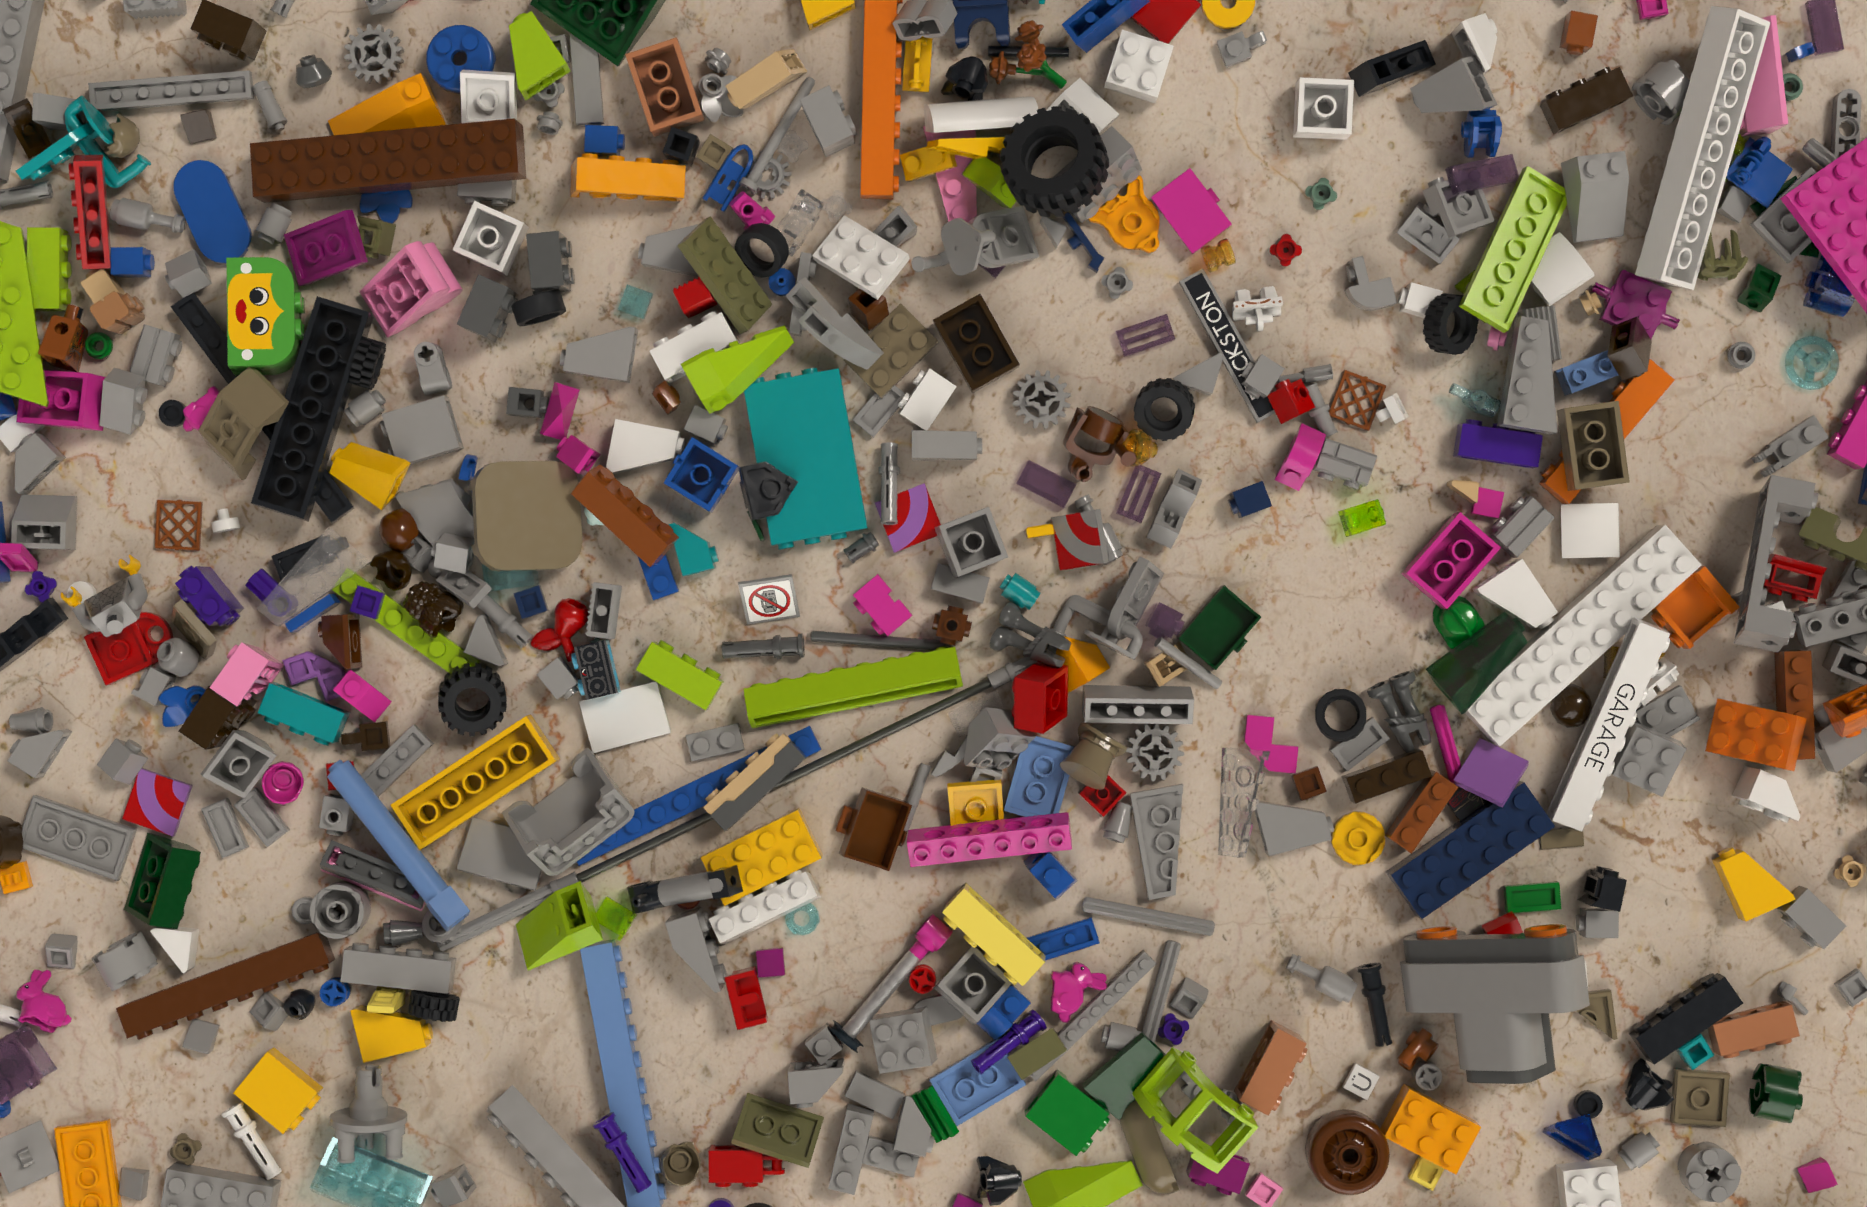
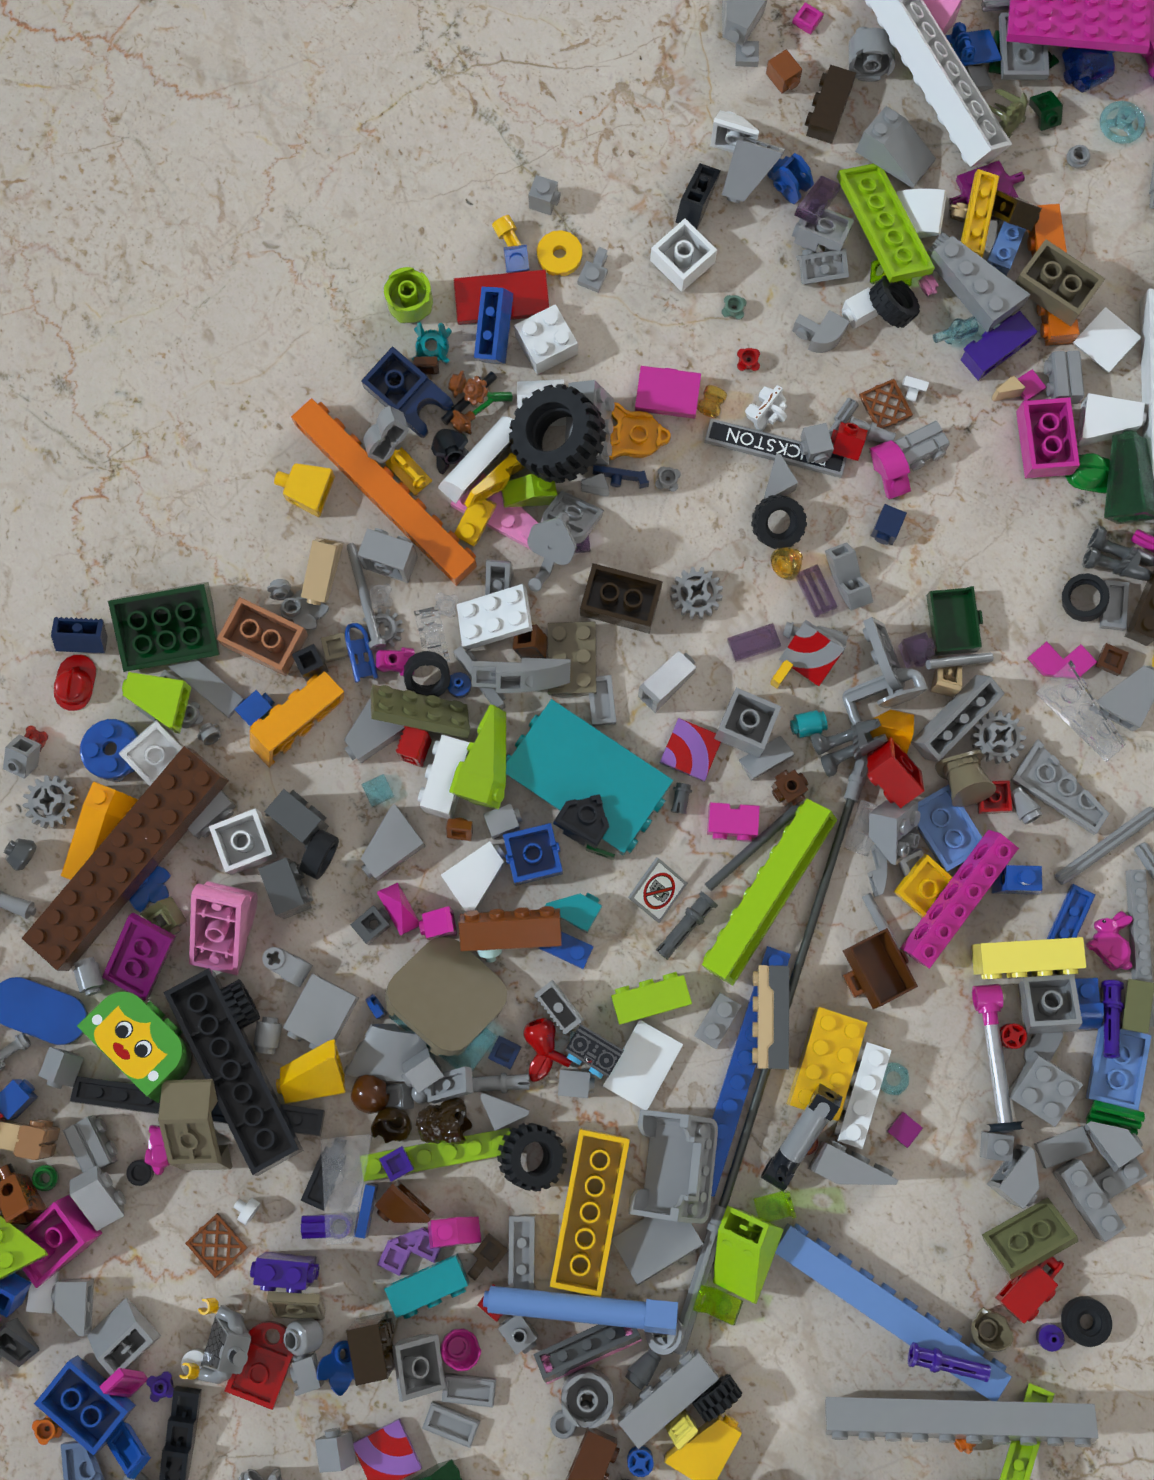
camera: 45 degrees left, 10 degrees down
(246, 672) = (362, 1296): bright pink wedge -> none
(502, 942) = (718, 1304): none -> clear neon green bracket
(746, 998) = (916, 1169): red window -> none
(889, 472) = (637, 721): light grey pin -> none
(926, 399) = (625, 663): white brick -> none
(1102, 427) = (750, 570): reddish brown piece -> none
(1124, 342) = (710, 510): clear purple tile -> none
(1362, 517) = (967, 466): clear neon green bracket -> none
(1599, 321) = (979, 211): none -> yellow tile

